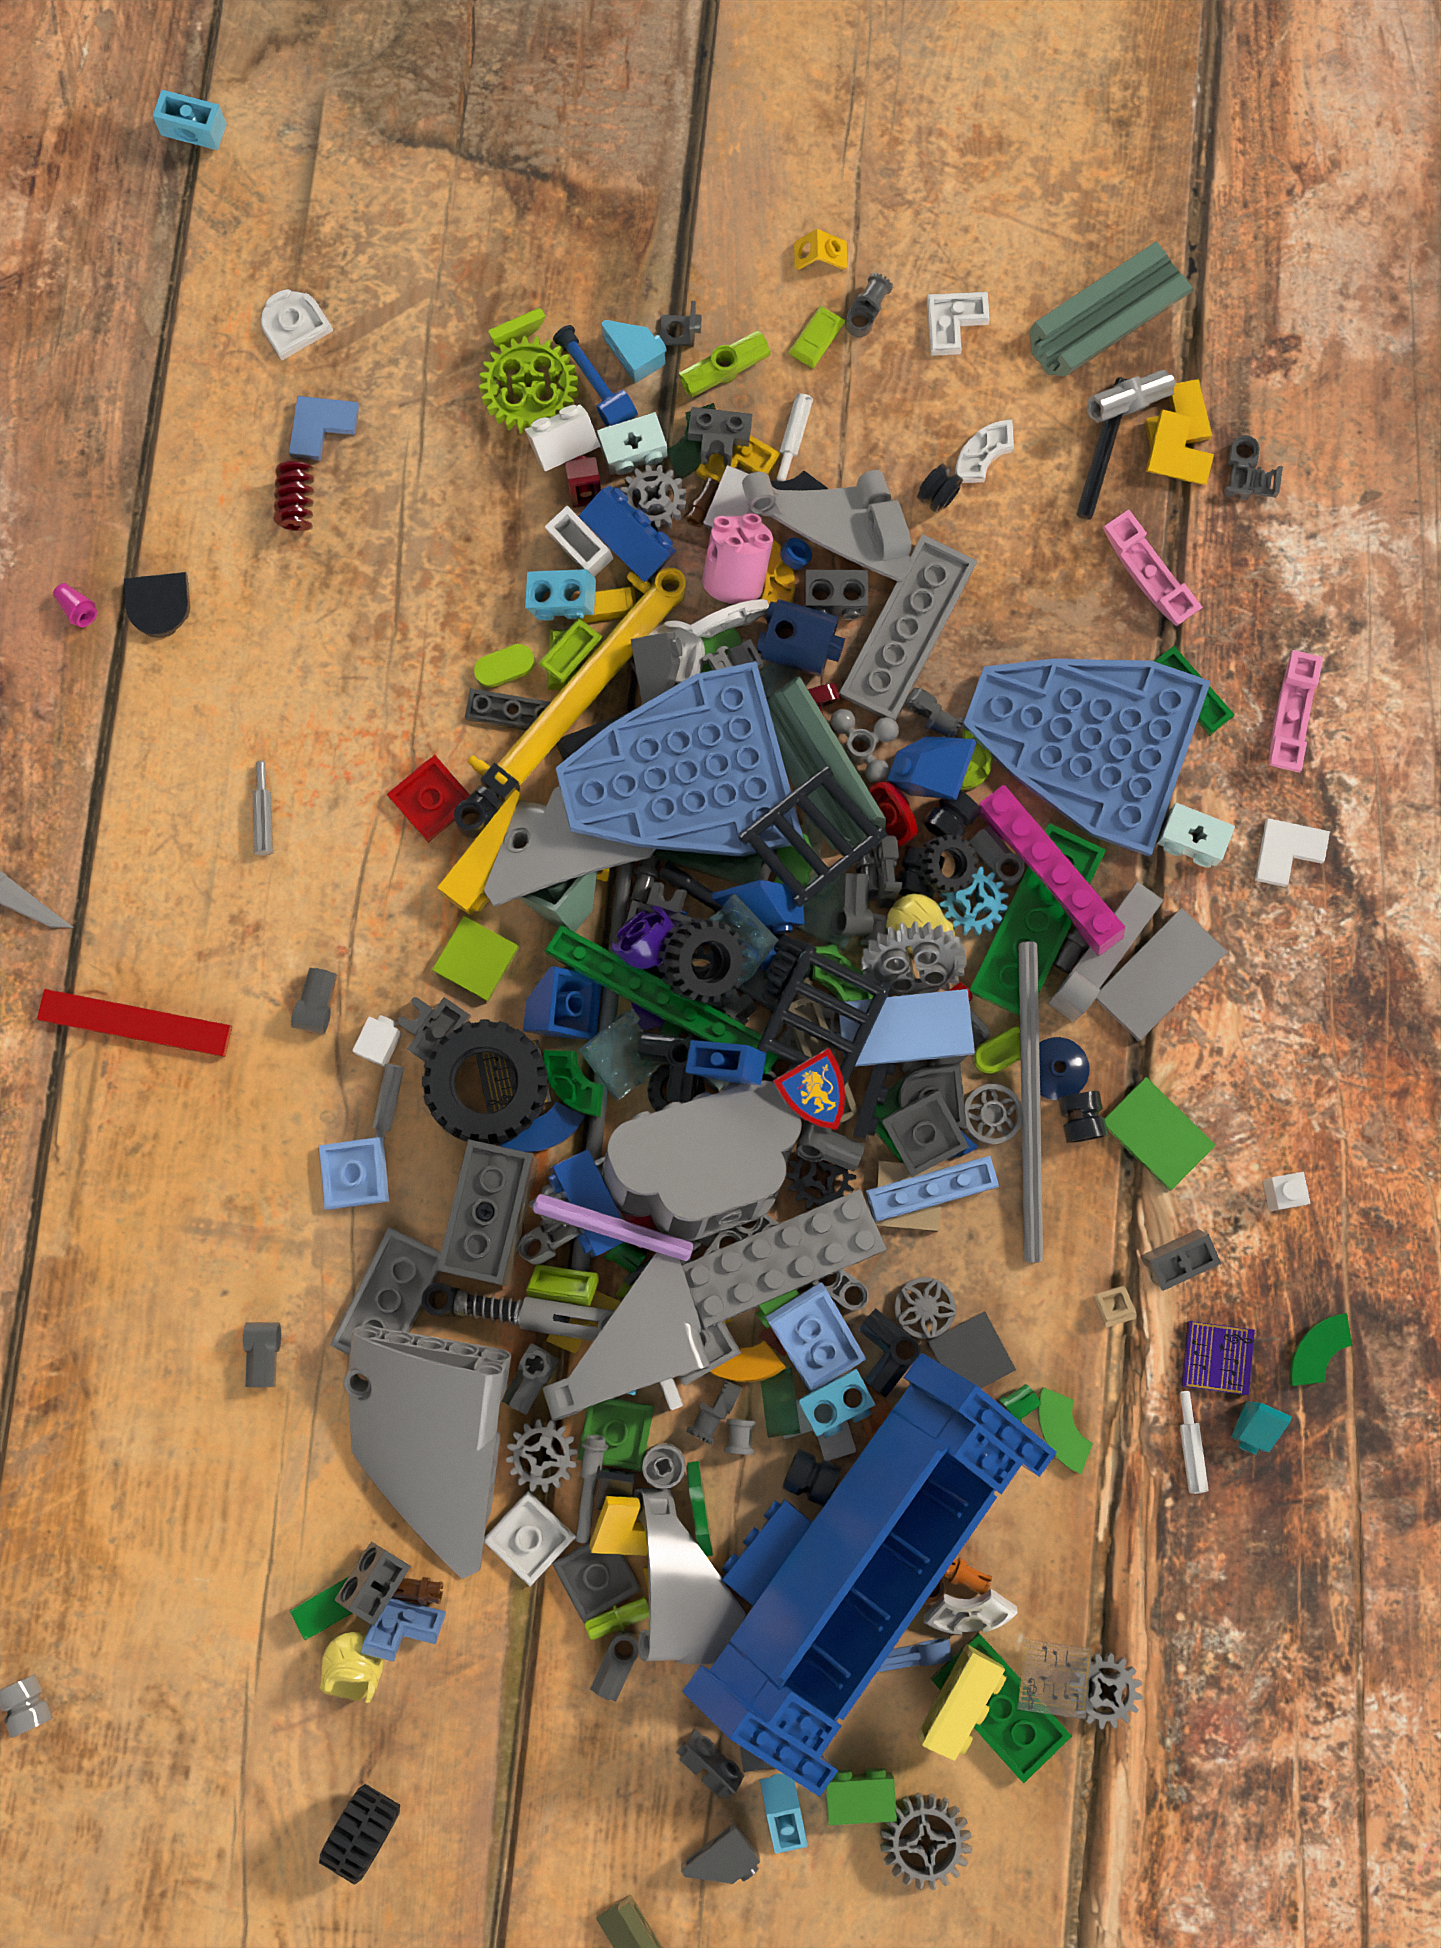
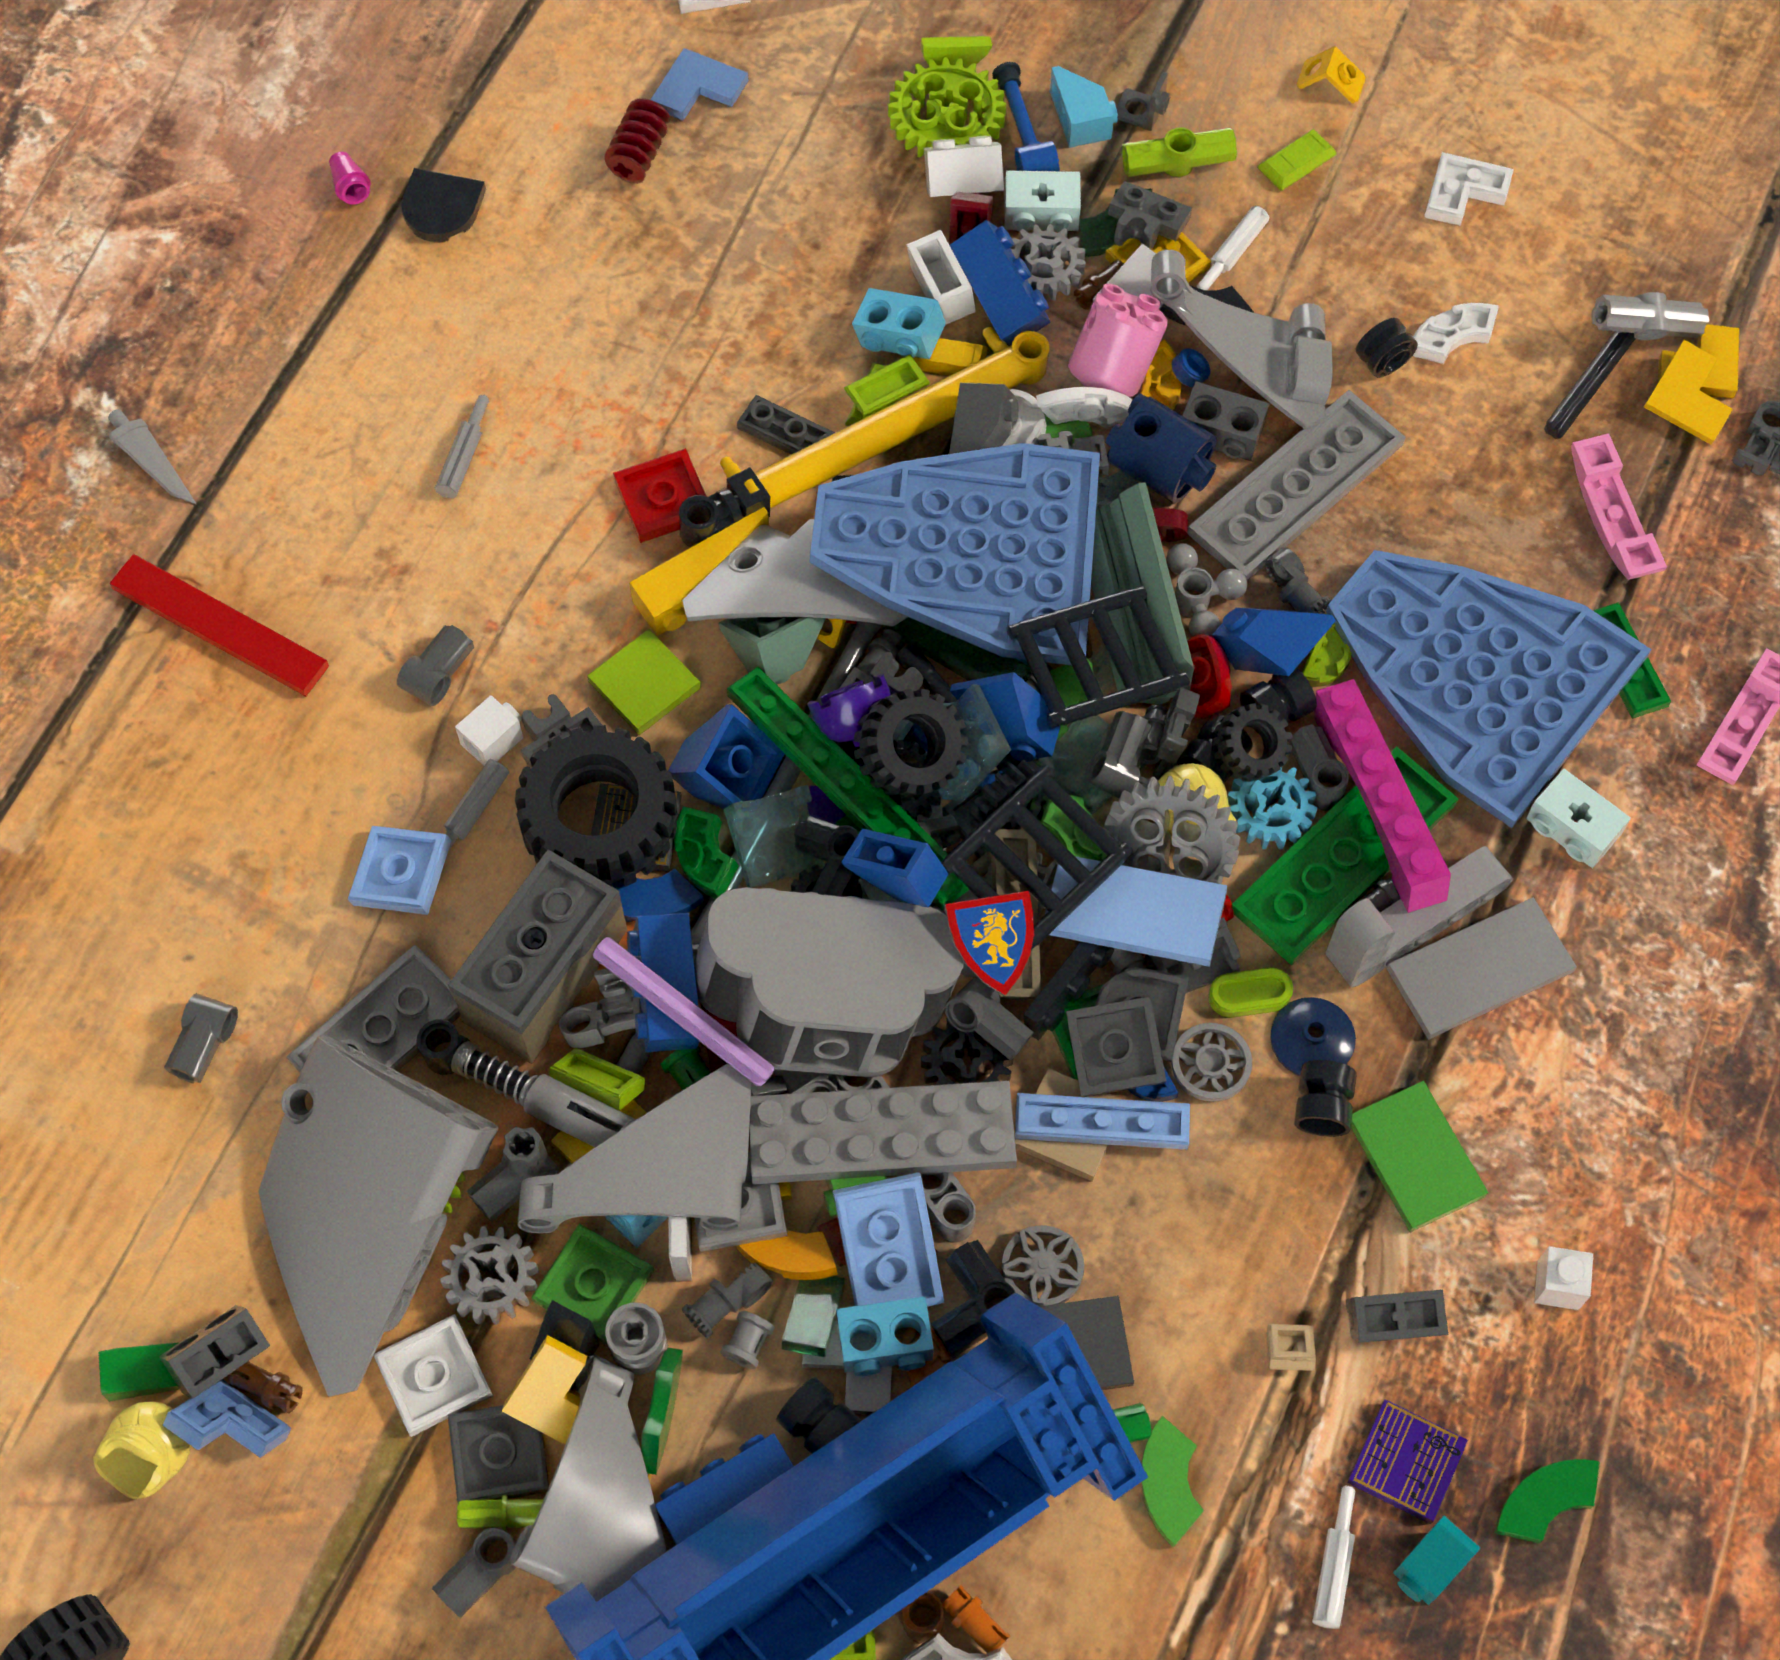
camera: 20 degrees right, 15 degrees down
(504, 666) = (804, 384): lime tile -> none
(591, 1469) = (554, 1288): light grey pin -> none
(868, 304) = (1368, 142): dark grey connector -> none
(1030, 1102) = (1262, 1063): light grey axle -> none
(1107, 311) = (1650, 224): sand green piece -> none
(1284, 842) = (1693, 865): white tile -> none

